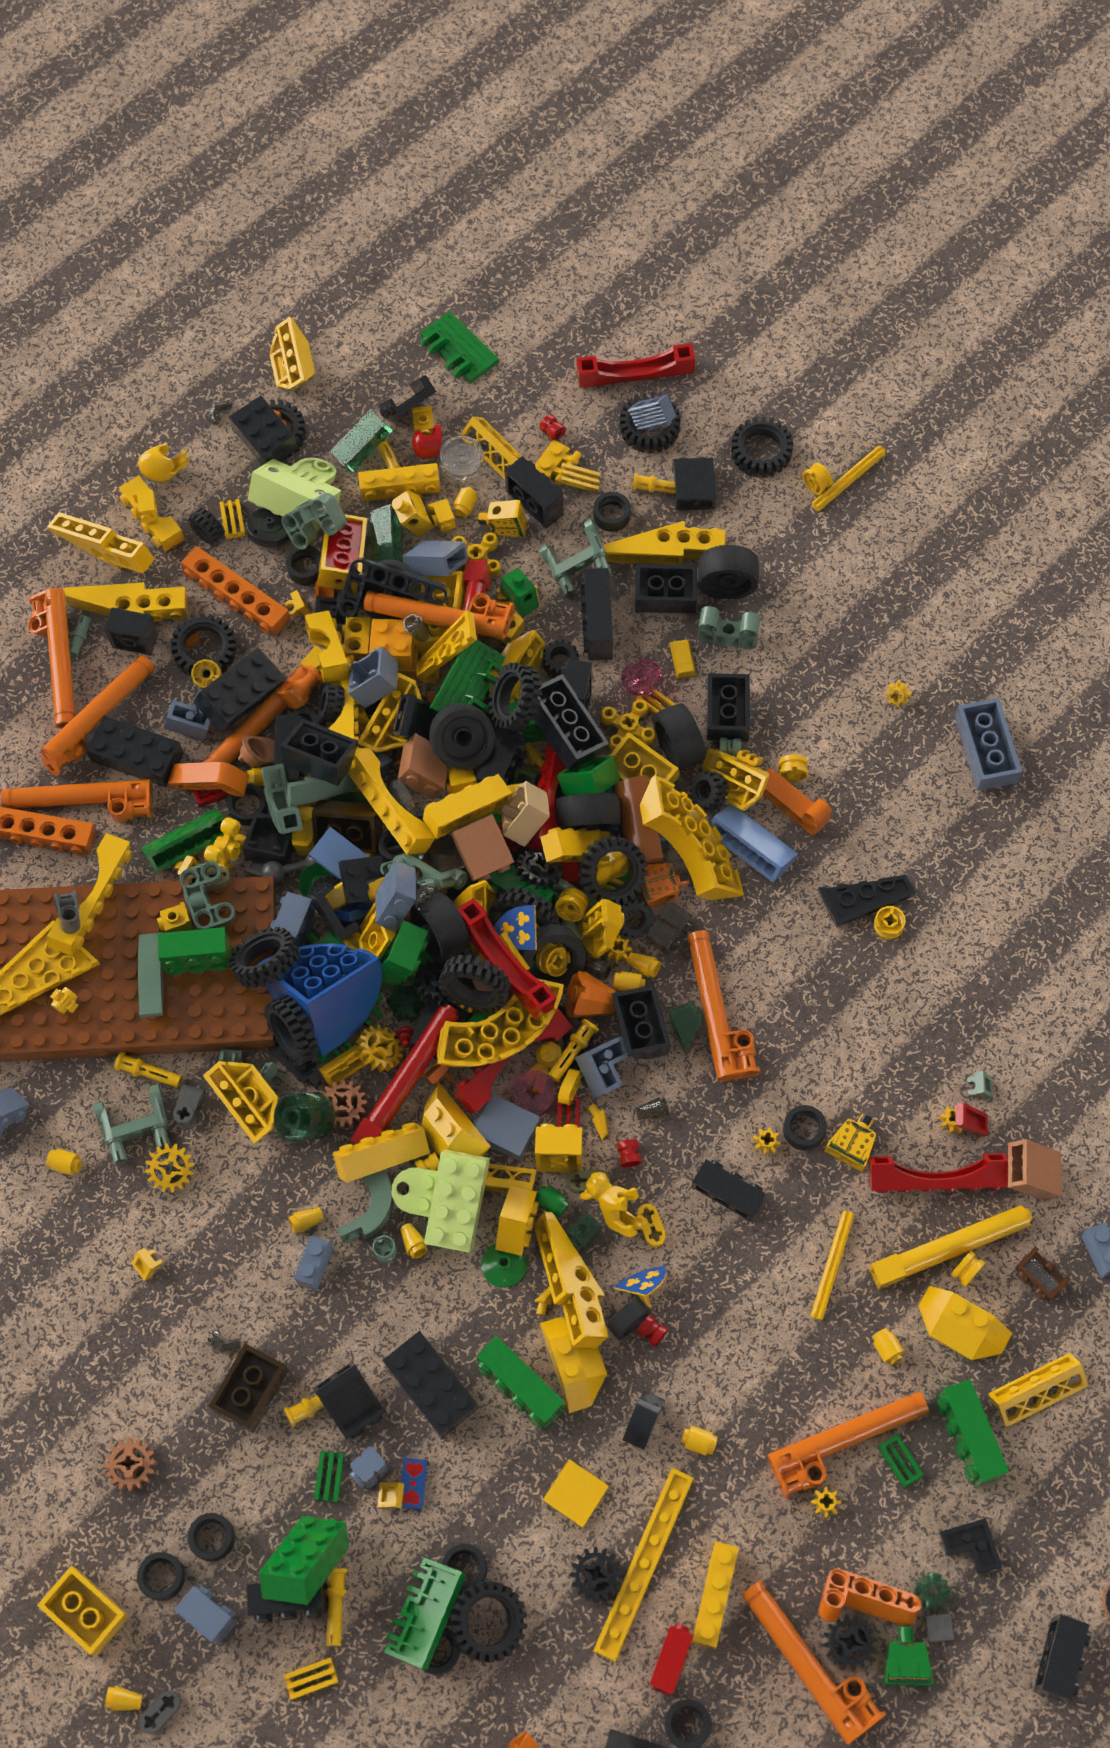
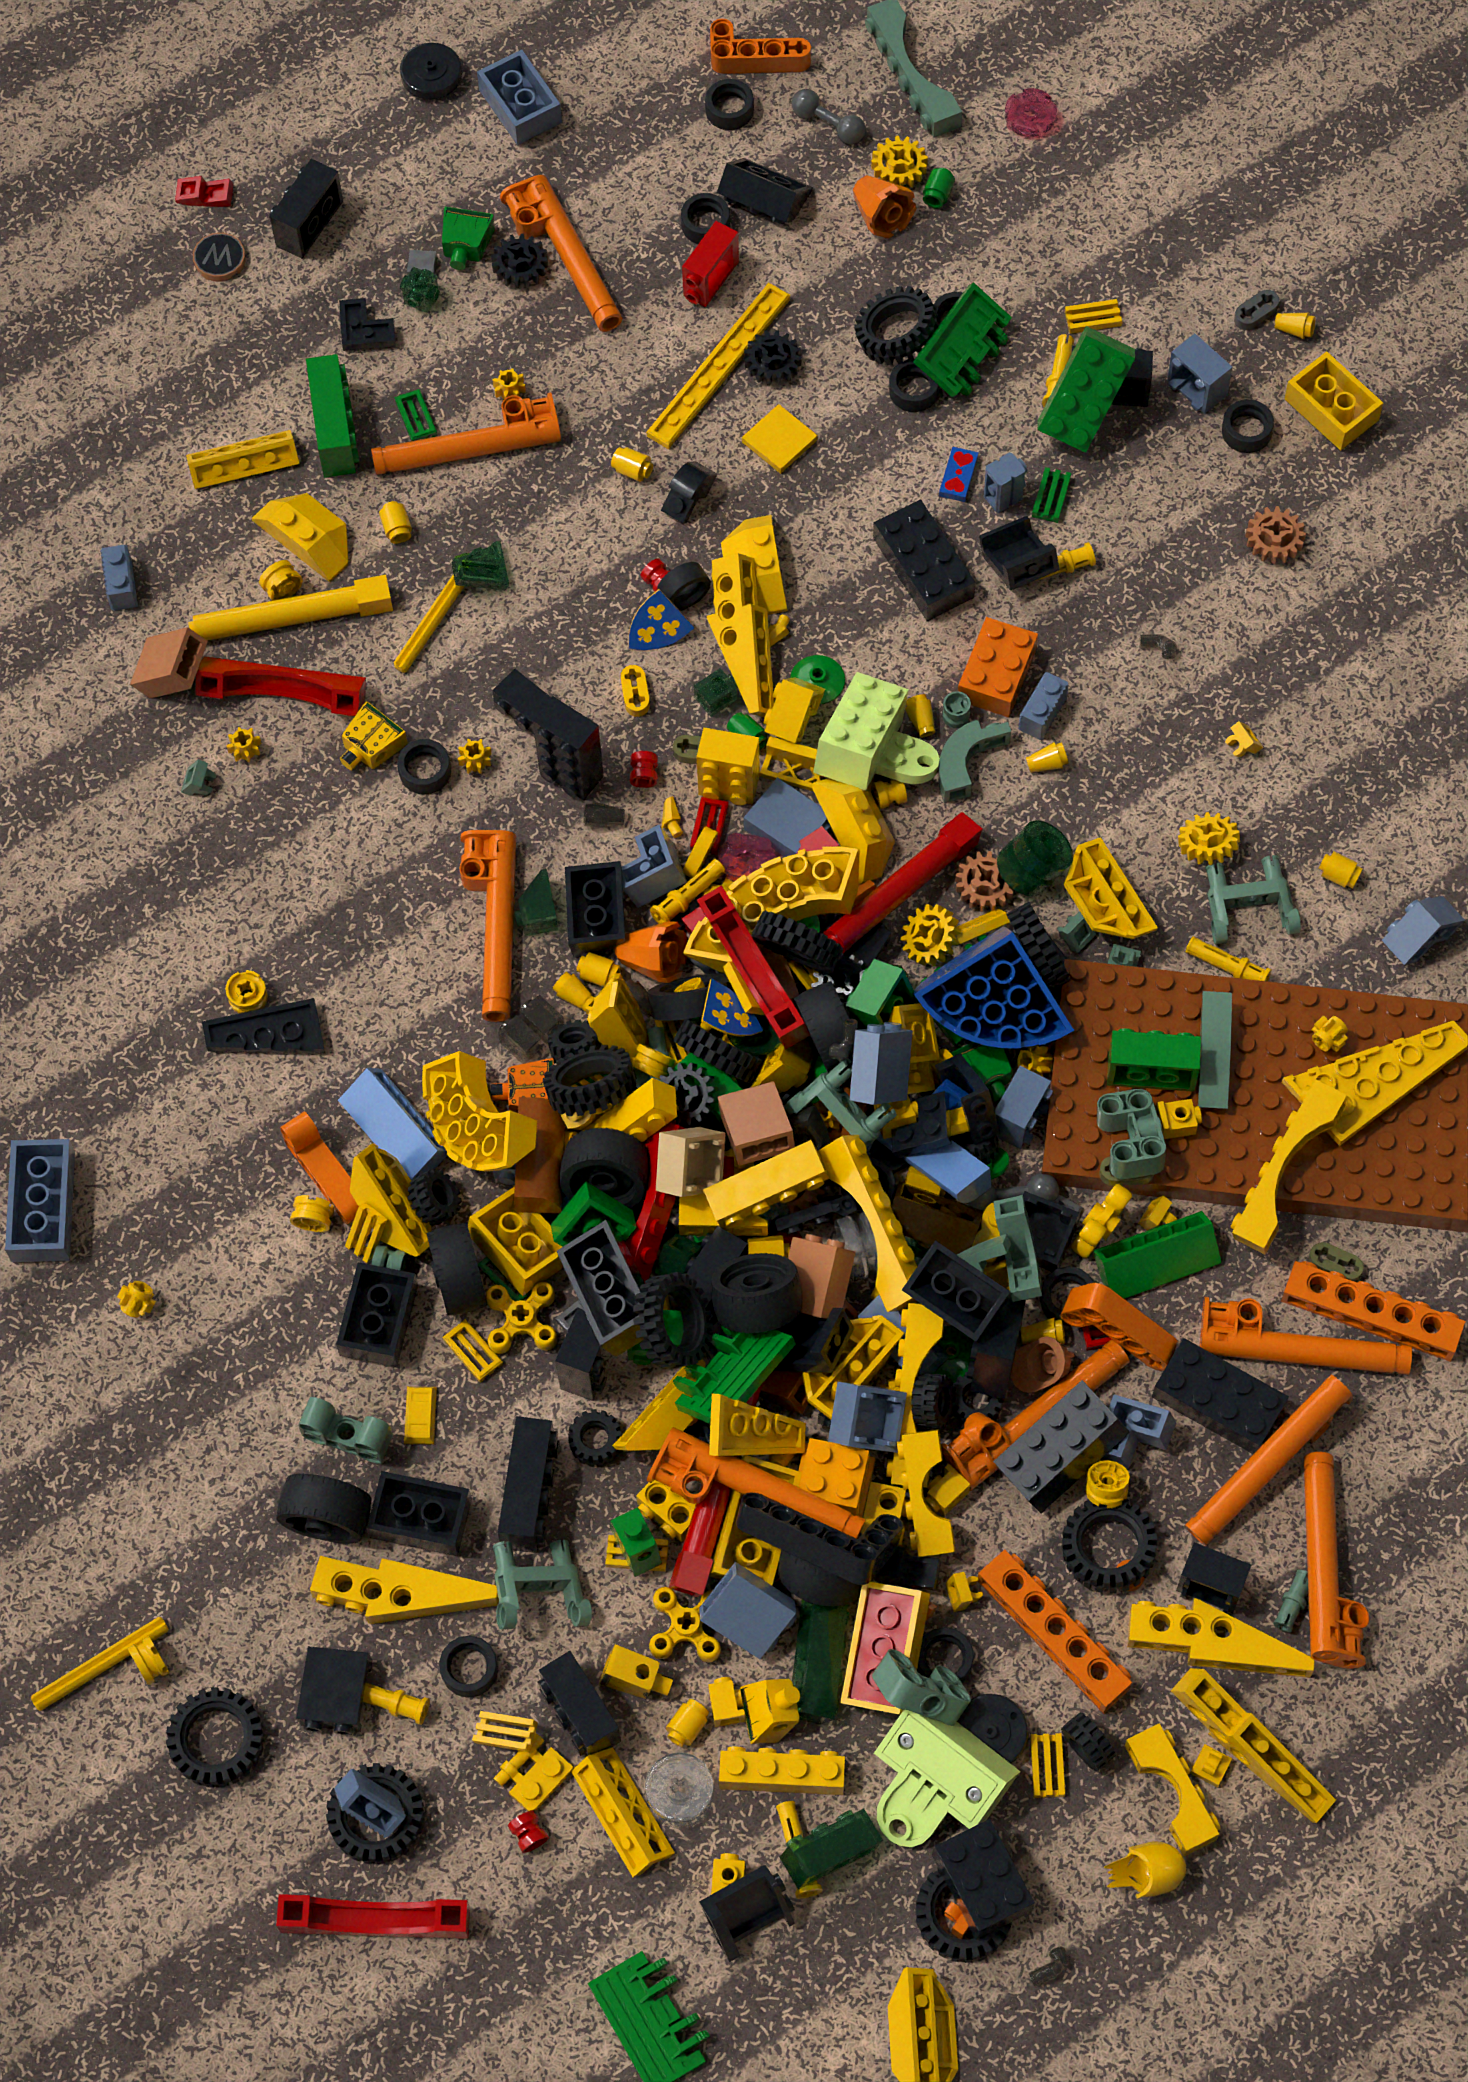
camera: 170 degrees left, 0 degrees up
(59, 856) = (1337, 1256): none -> olive beam
(68, 908) = (1317, 1124): dark grey piece -> none
(129, 531) = (1211, 1765): none -> yellow tile
(146, 505) = (1177, 1777): yellow brick -> none
(189, 1102) = (1179, 912): dark grey piece -> none
(193, 1531) = (1189, 436): black tyre -> none
(248, 1388) = (1133, 584): dark brown brick -> none
(269, 969) = (1091, 1048): black tyre -> none
(355, 1292) = (998, 666): none -> orange brick
(380, 1152) = (945, 802): yellow brick -> none
(390, 1495) = (980, 459): yellow tile -> none
(404, 1035) = (895, 954): red hair -> none
(415, 626) = (795, 1470): clear smoke cone -> none
(427, 446) = (726, 1832): red helmet -> none
(521, 1383) = (821, 538): green brick -> none
(613, 1204) = (675, 705): yellow animal -> none
(646, 685) = (486, 1401): clear pink plate -> none
(689, 1133) = (568, 748): none -> black brick
(715, 1595) = (639, 335): yellow arch -> none
(803, 1311) = (481, 568): none -> clear green wing
(868, 1597) = (486, 290): orange beam -> none
(971, 1119) = (223, 734): red tile -> none
(1040, 1275) = (197, 564): reddish brown window -> none

